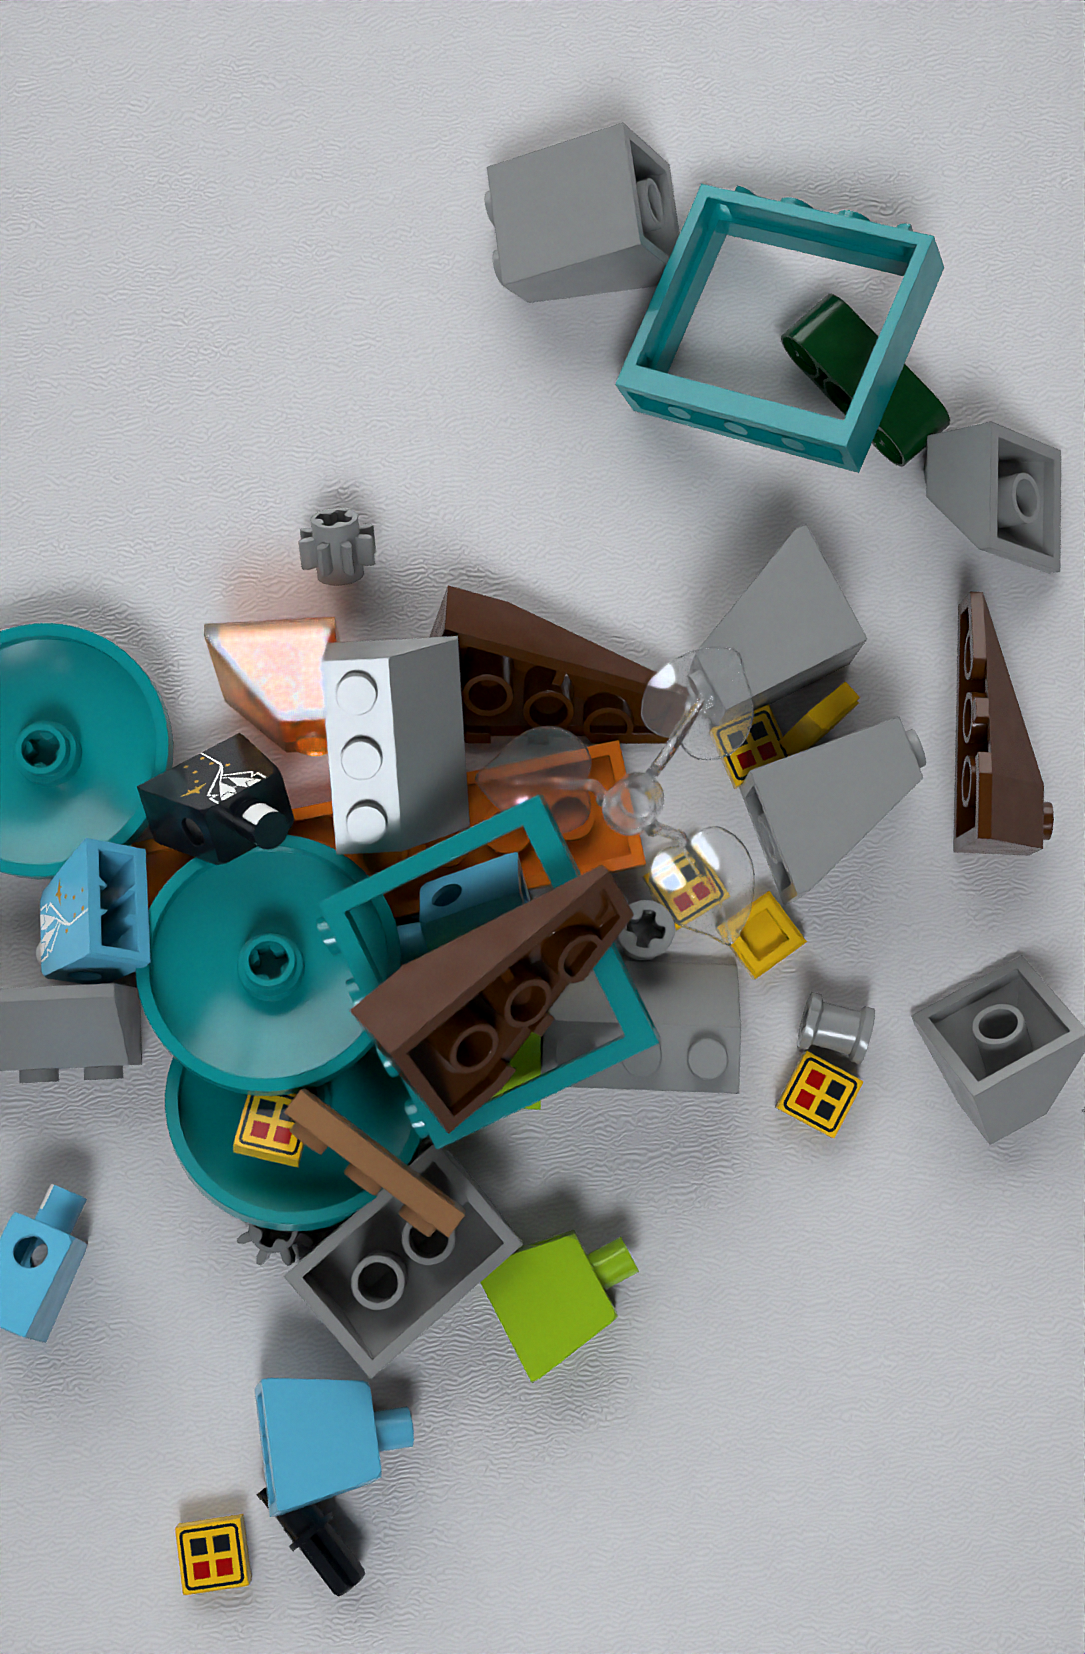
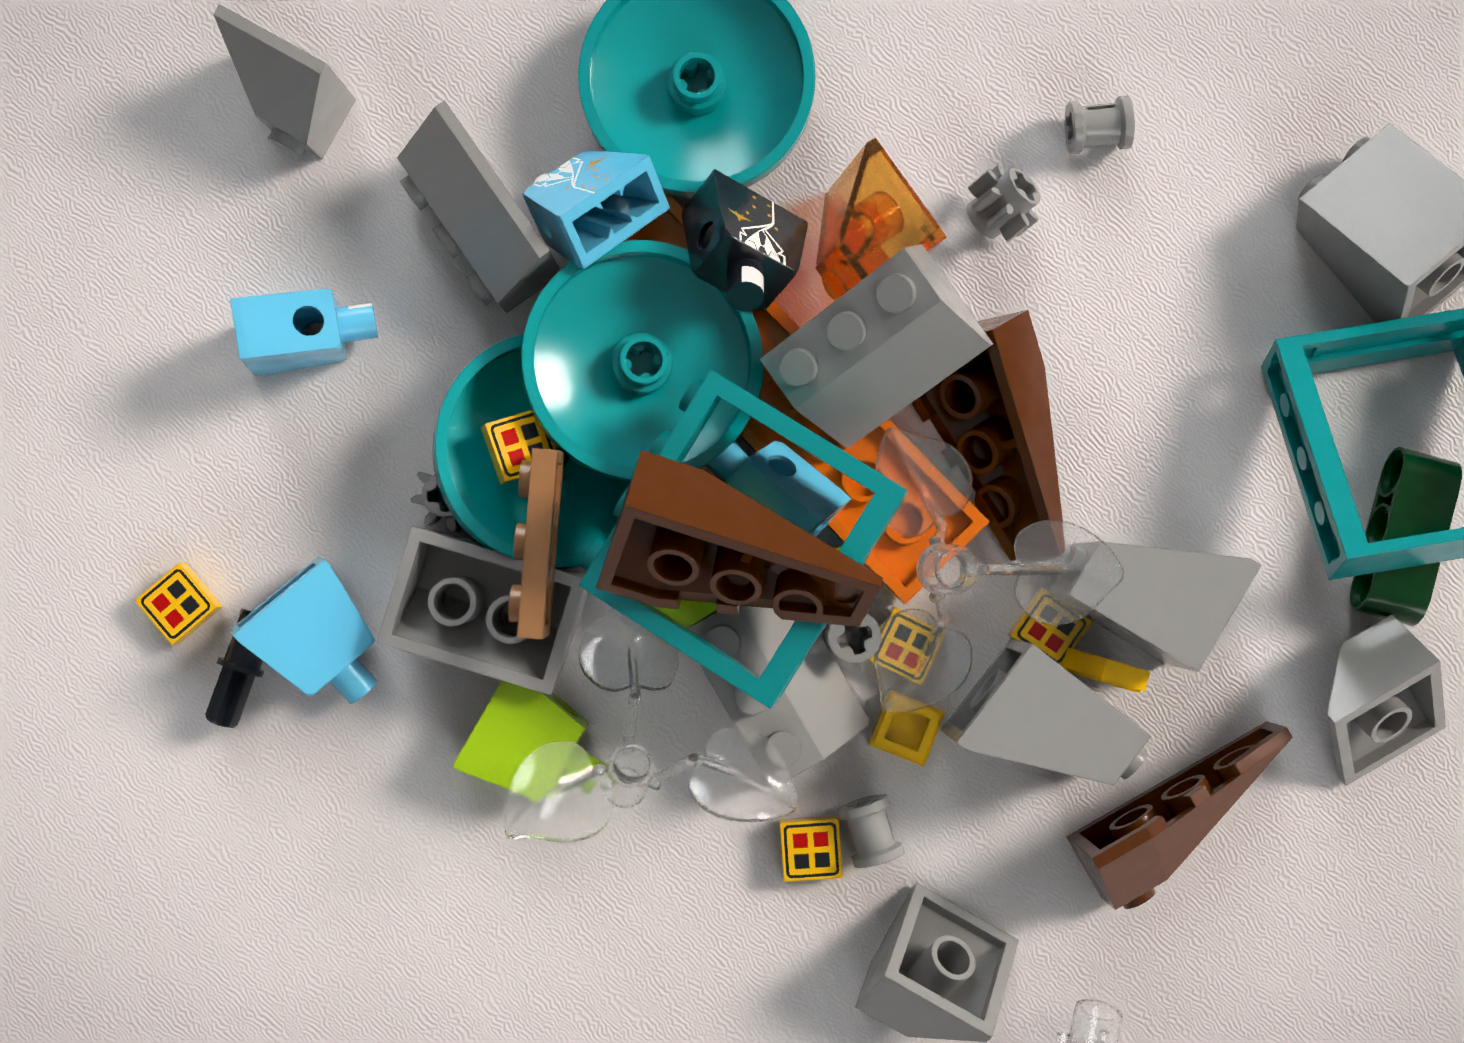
camera: 60 degrees right, 5 degrees up
(322, 417) = (1099, 124): none -> light grey bush
(627, 1286) = (568, 800): none -> clear plant

